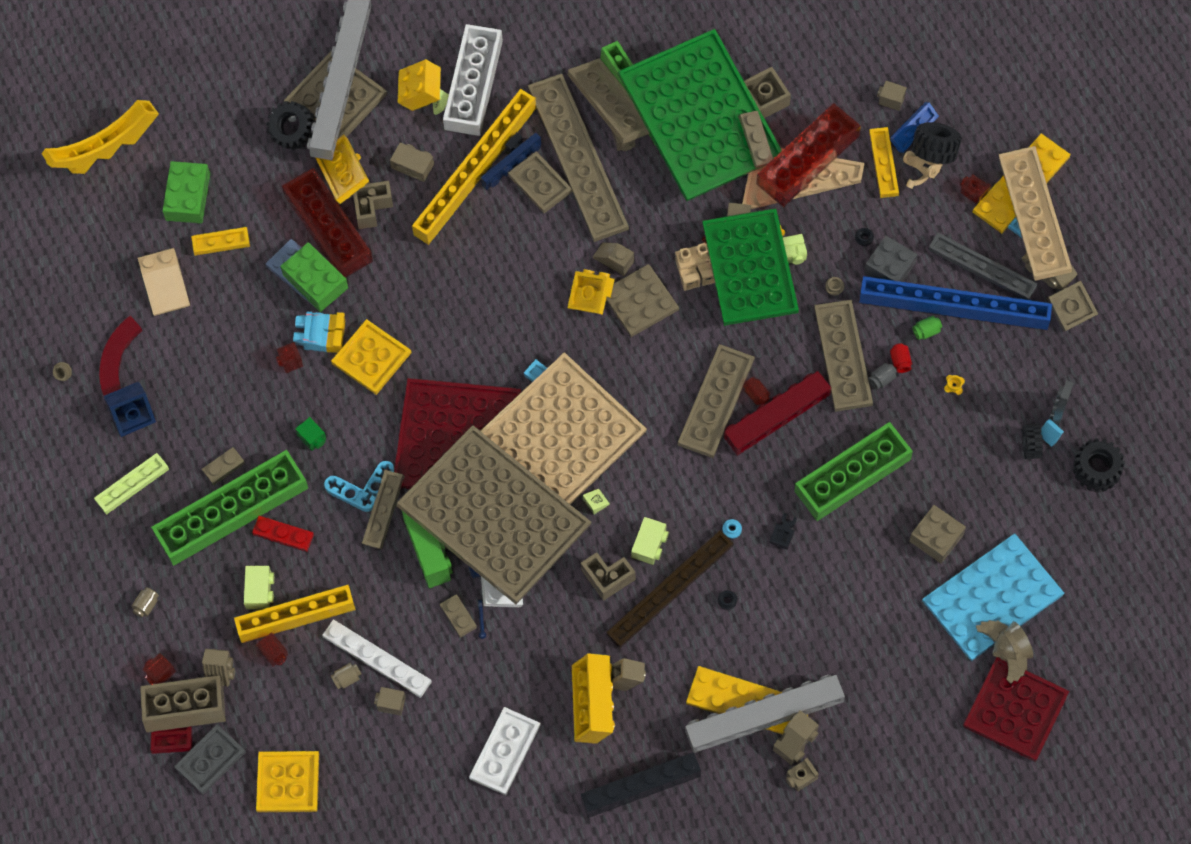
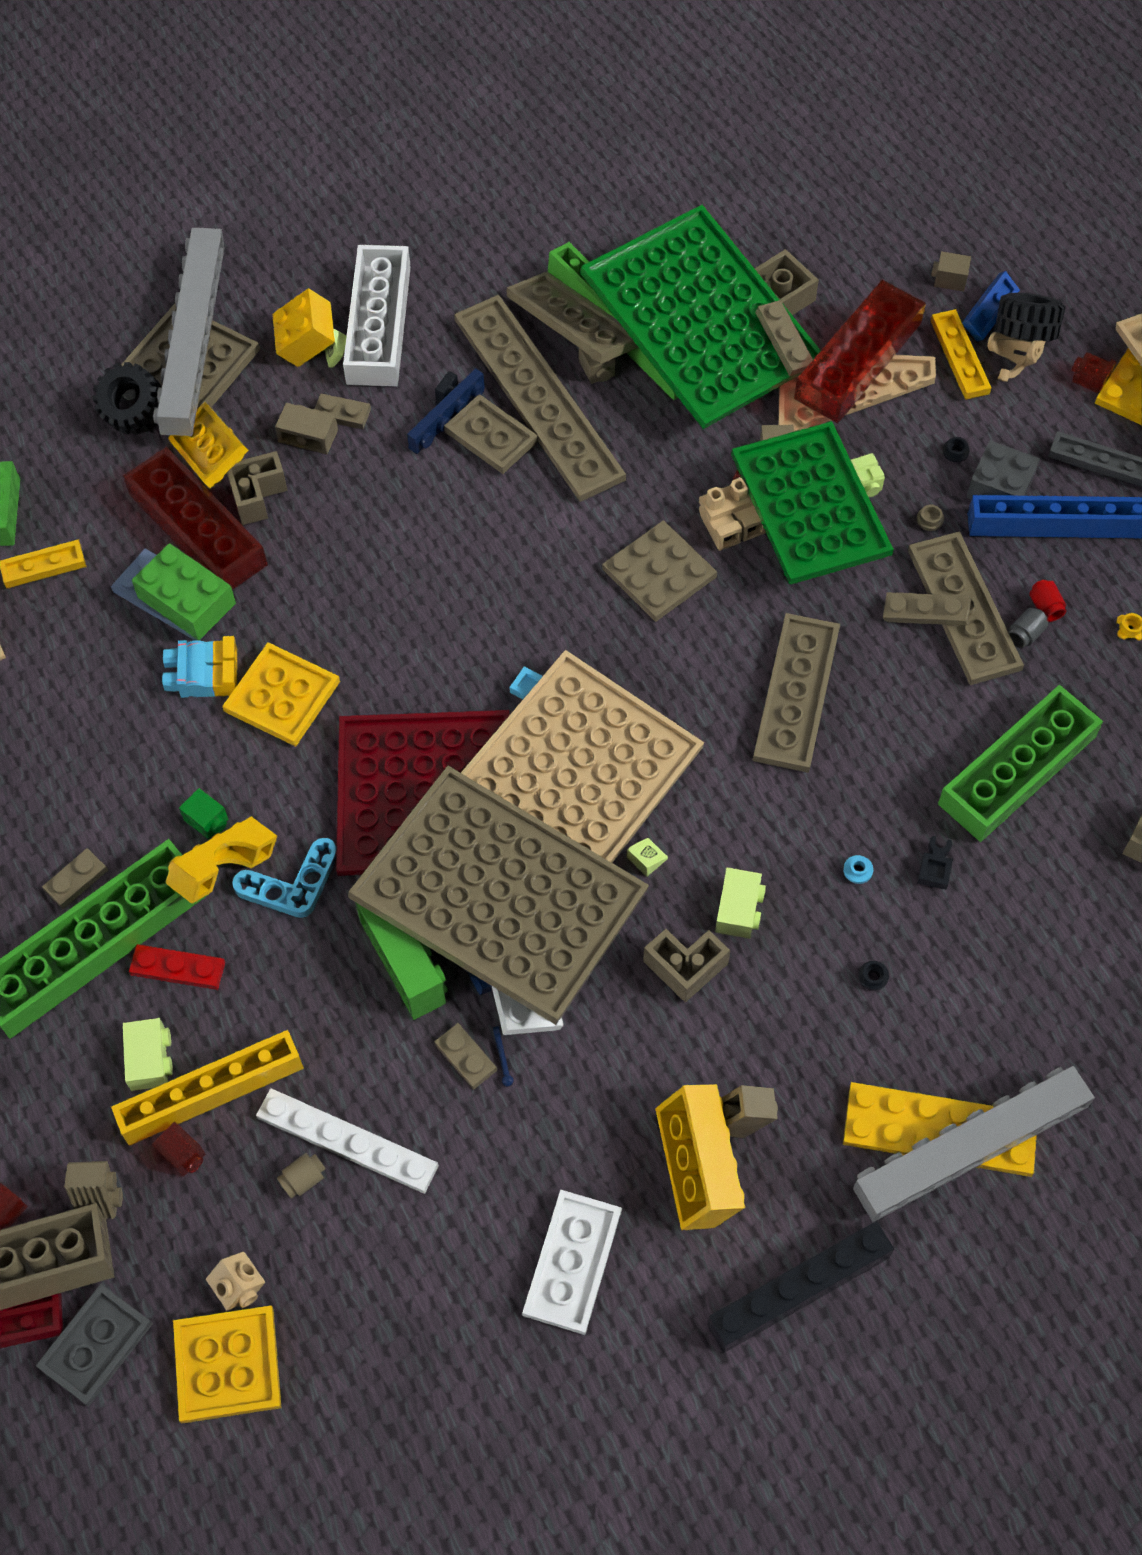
camera: 10 degrees left, 5 degrees down
(289, 358) = (159, 709): clear red brick -> none
(298, 733) = (235, 1281): none -> tan brick
(335, 458) = (196, 871): none -> yellow arch
(383, 509) = (327, 910): dark tan plate -> none
(390, 701) = (377, 1206): dark tan brick -> none
(439, 150) = (347, 411): none -> dark tan plate
(474, 167) = (393, 424): yellow brick -> none
(590, 291) = (588, 564): yellow plate -> none
(615, 257) = (614, 516): dark tan slope -> none
(670, 589) = (782, 972): dark brown plate -> none
(756, 391) = (853, 670): clear red brick -> none
(777, 413) = (889, 696): dark red brick -> none
(796, 736) = (1031, 1175): dark tan brick -> none
(801, 782) = (1059, 1223): dark tan brick -> none
(815, 353) = (927, 608): none -> dark tan plate
(927, 327) = (1074, 555): bright green brick -> none

